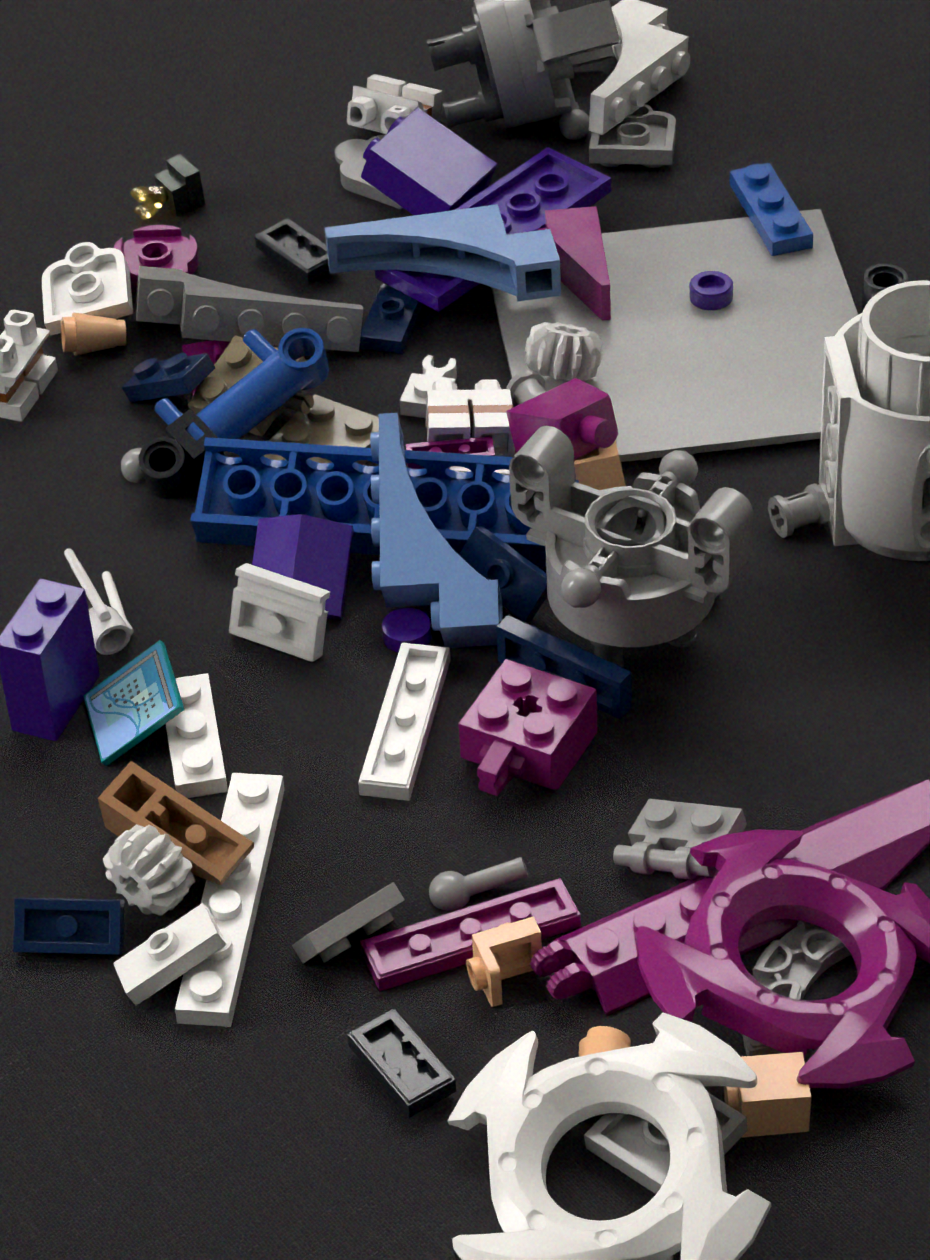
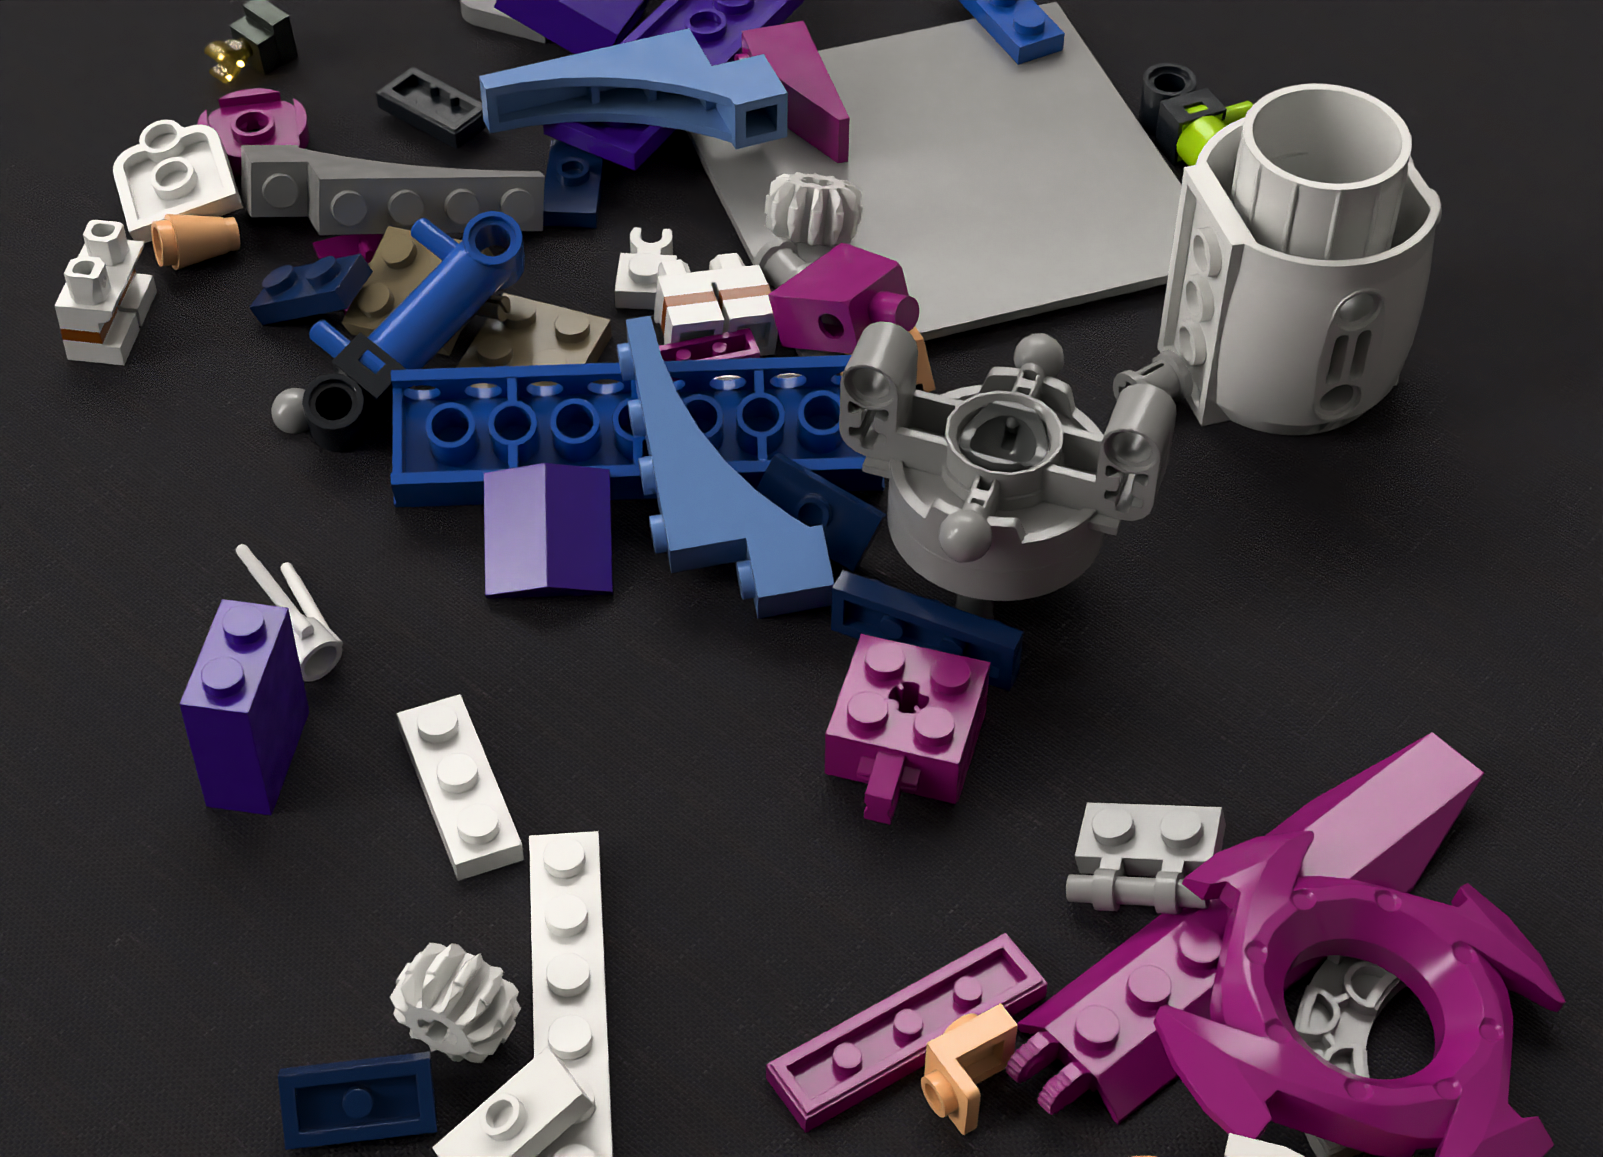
camera: 15 degrees left, 5 degrees up
(133, 703) = (372, 751): piece -> none
(145, 800) = (430, 905): medium nougat slope -> none
(279, 612) = (538, 598): white plate -> none
(332, 936) = (765, 1025): light grey plate -> none
(404, 722) = (736, 732): white tile -> none
(406, 626) = (704, 601): dark purple tile -> none
(453, 890) = (864, 968): light grey bar -> none
(711, 290) = (961, 113): dark purple tile -> none

